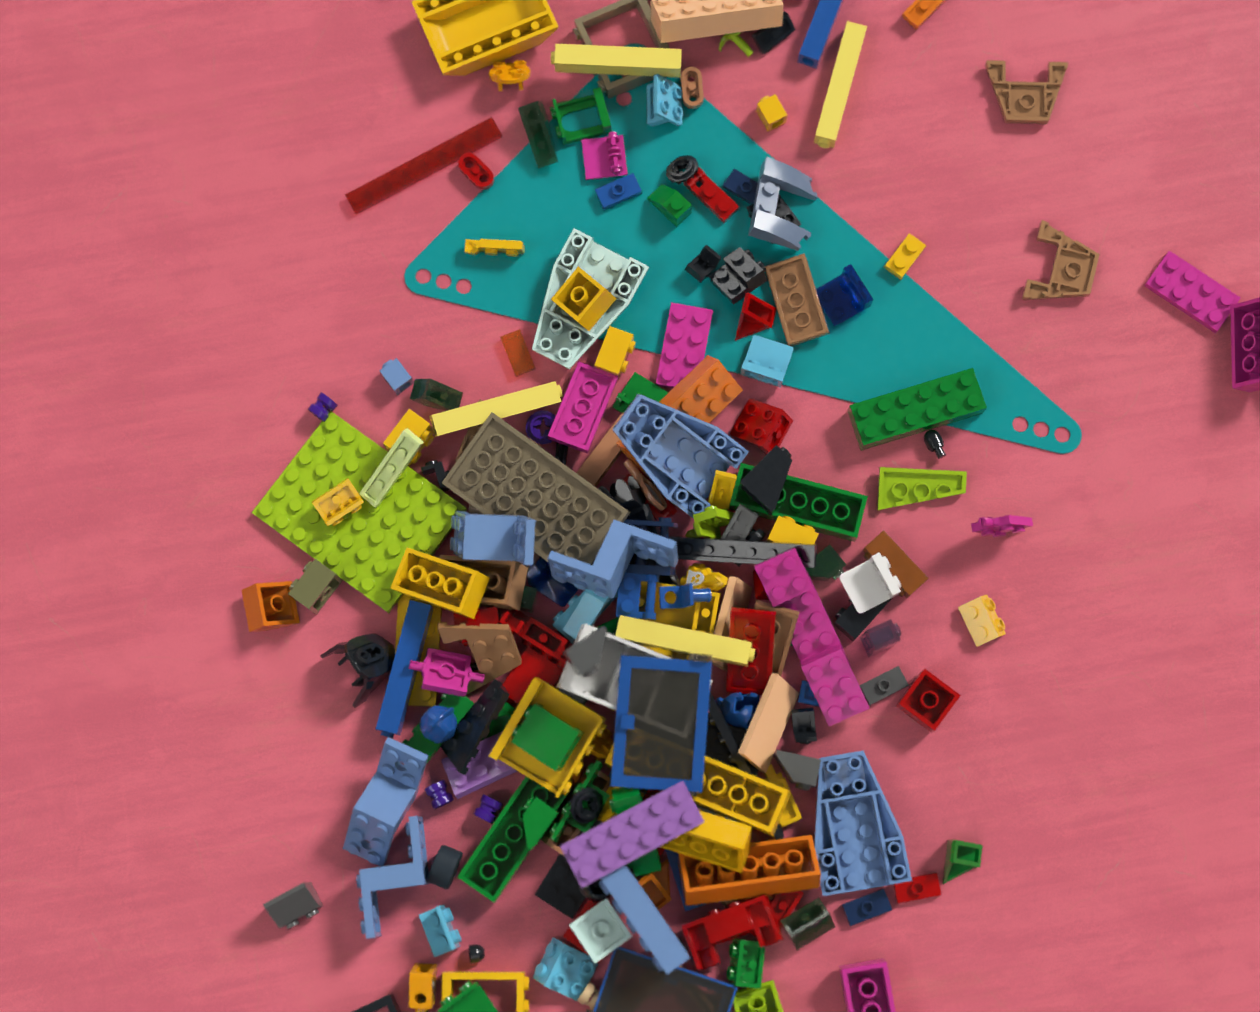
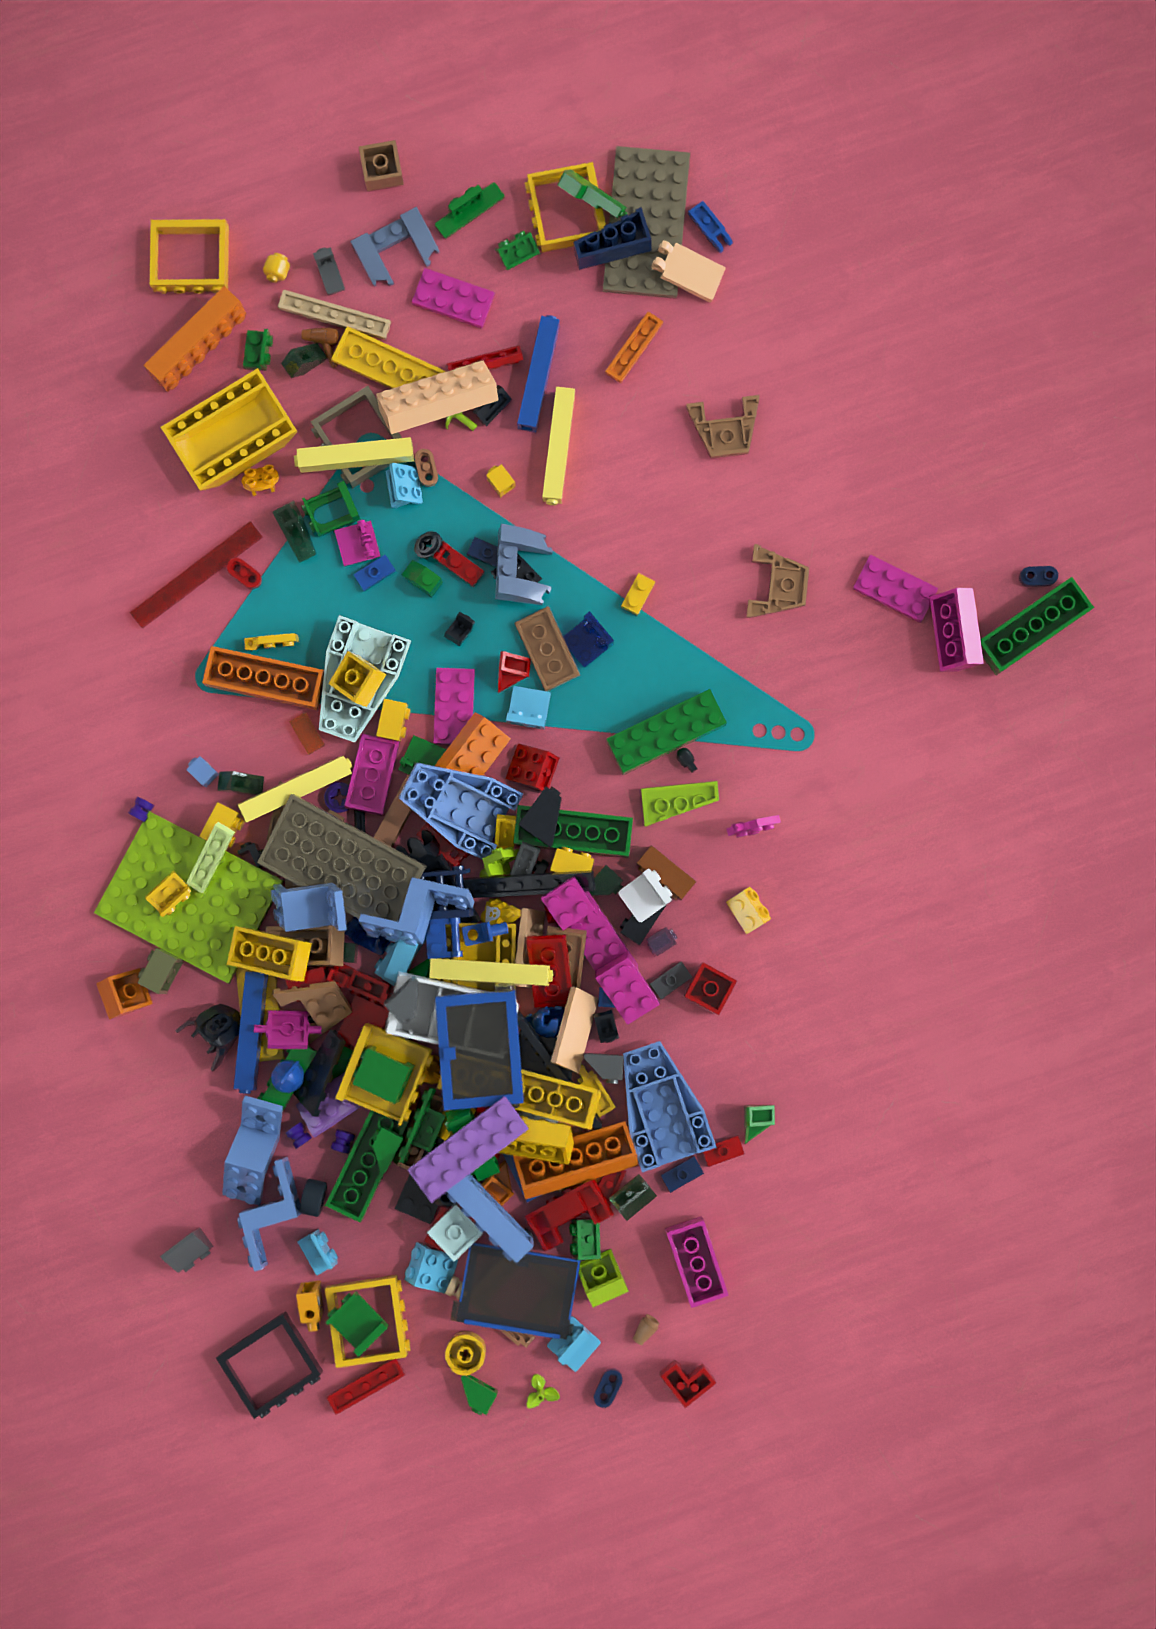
camera: 10 degrees left, 5 degrees up
(476, 953) = (352, 1266): black hinge -> none
(480, 284) = (264, 678): none -> orange brick
(594, 802) = (433, 1124): black gear -> none
(648, 488) = (440, 841): nougat piece -> none
(738, 275) = (492, 635): black plate -> none

